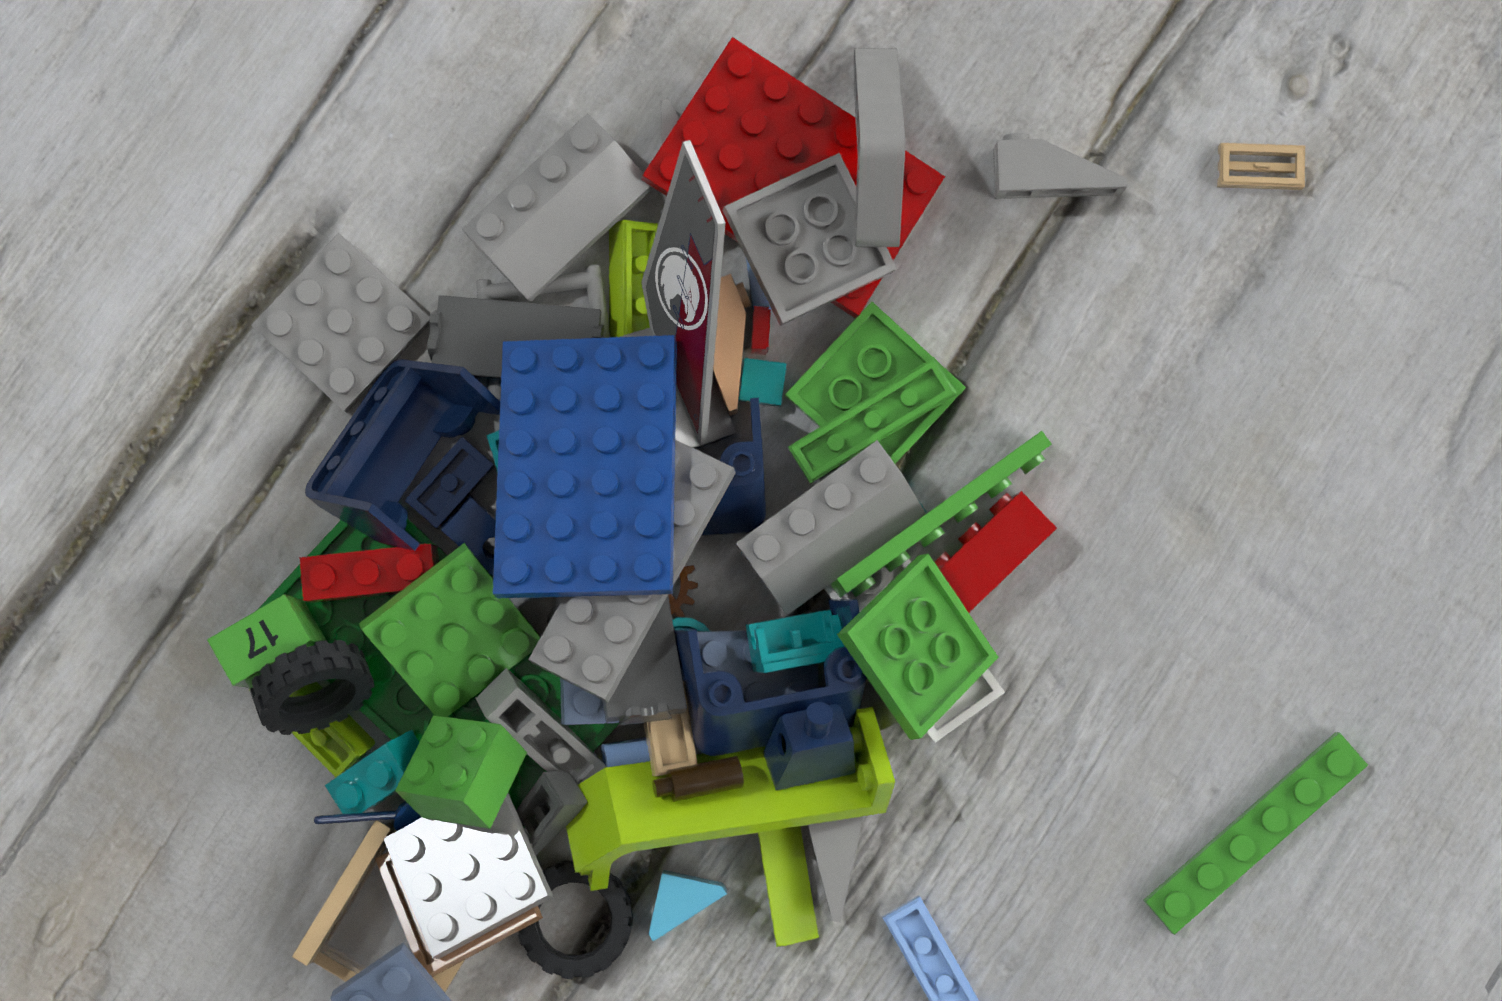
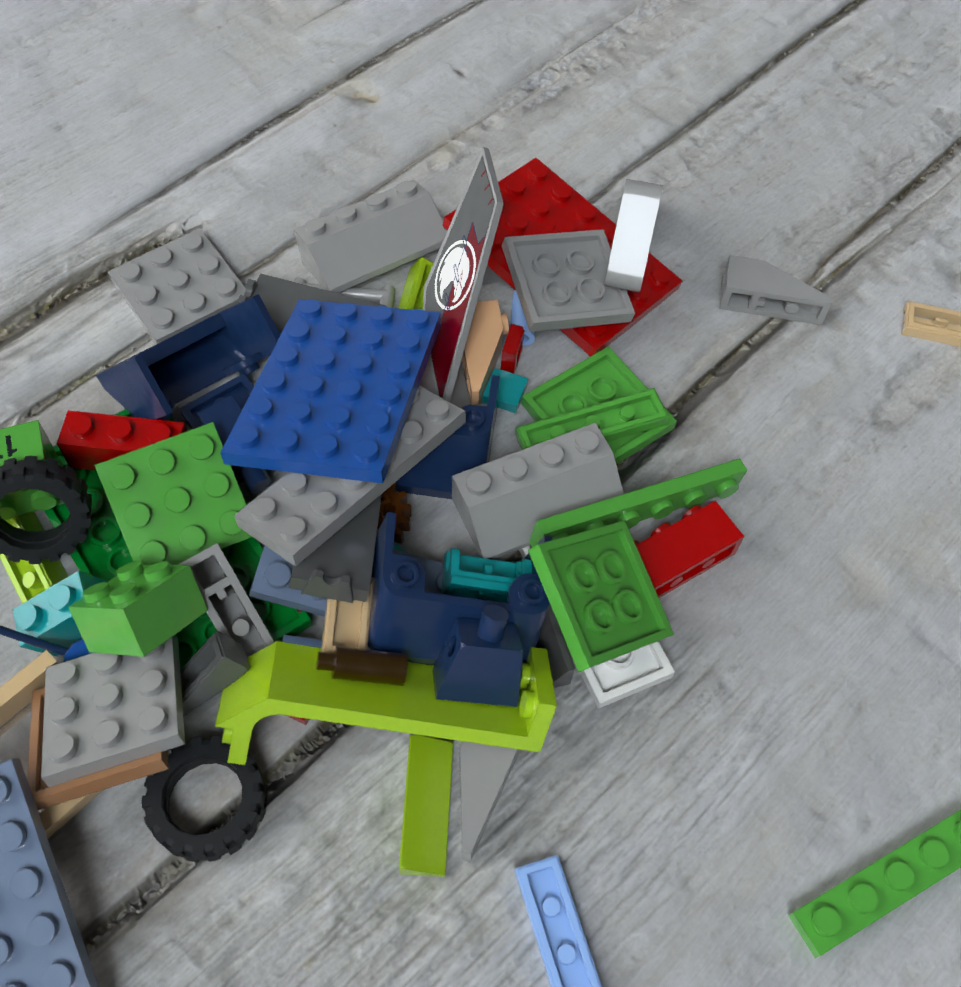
camera: 10 degrees right, 25 degrees down
(681, 898) = (313, 801): medium azure slope -> none

